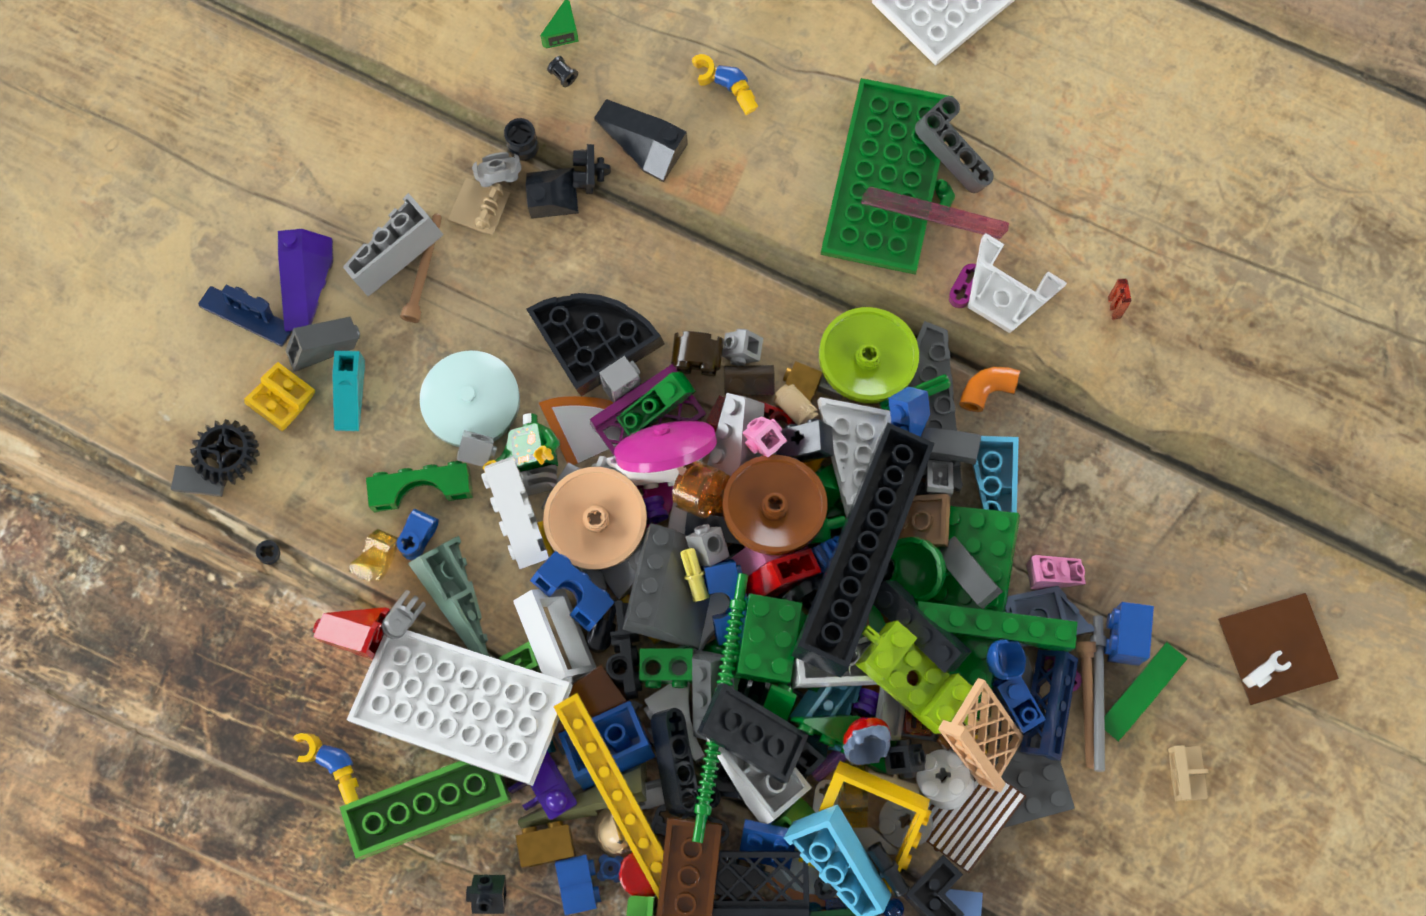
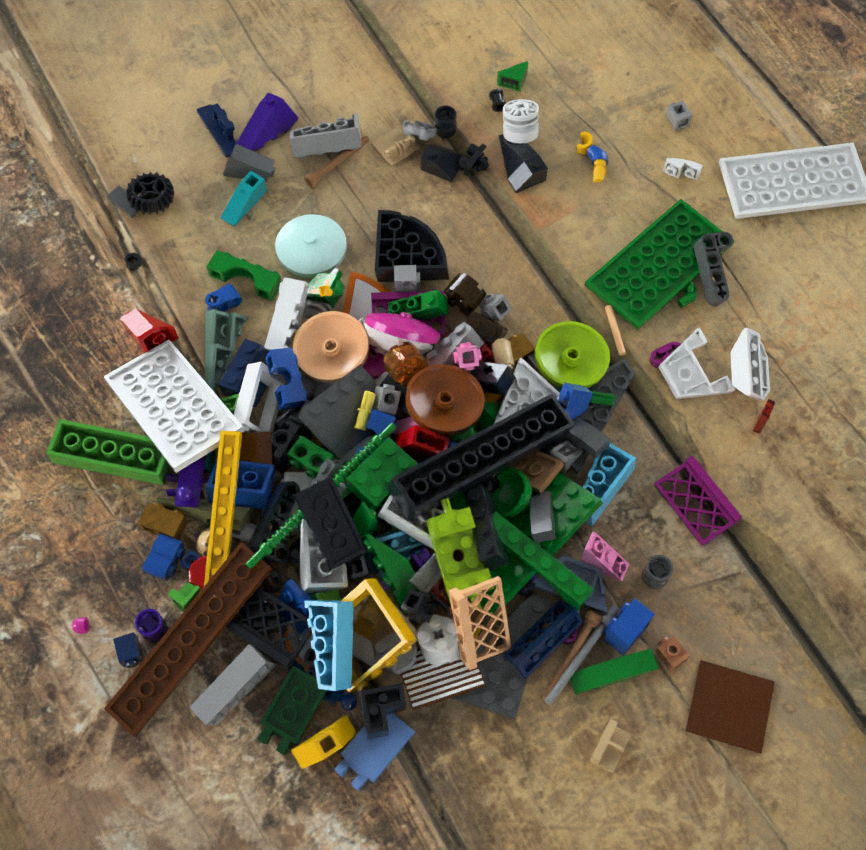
camera: 30 degrees right, 10 degrees down
(279, 396) = (204, 183): yellow slope -> none
(334, 760) = (80, 395): yellow piece -> none
(375, 557) = (189, 298): clear yellow brick -> none
(401, 617) = (179, 337): light grey arm -> none
(476, 448) = (292, 269): light grey brick -> none
(487, 894) = (107, 527): black brick -> none
(502, 588) = (248, 353): none -> dark blue slope
(614, 87) = (520, 121): none -> white wheel
(655, 509) = (373, 365): dark purple wheel -> none
(828, 39) = (676, 167): none -> white slope
(867, 741) = (400, 575): sand blue hair -> none
(888, 869) = (359, 667): black pin -> none
(891, 290) = (615, 330): none -> light nougat bar
(934, 212) = (673, 297): clear pink tile -> none
(986, 382) = (639, 418): orange cylinder -> none
(1006, 659) = (533, 585): blue hair -> none
(1018, 703) = (521, 620): blue slope -> none
(1067, 246) = (750, 365): none -> white wedge
(1116, 421) = (712, 492): none -> magenta fence
(1118, 551) = (661, 568): none -> dark grey wheel
(1192, 640) = (671, 660): none -> nougat brick
(1261, 675) = (705, 712): white plate -> none

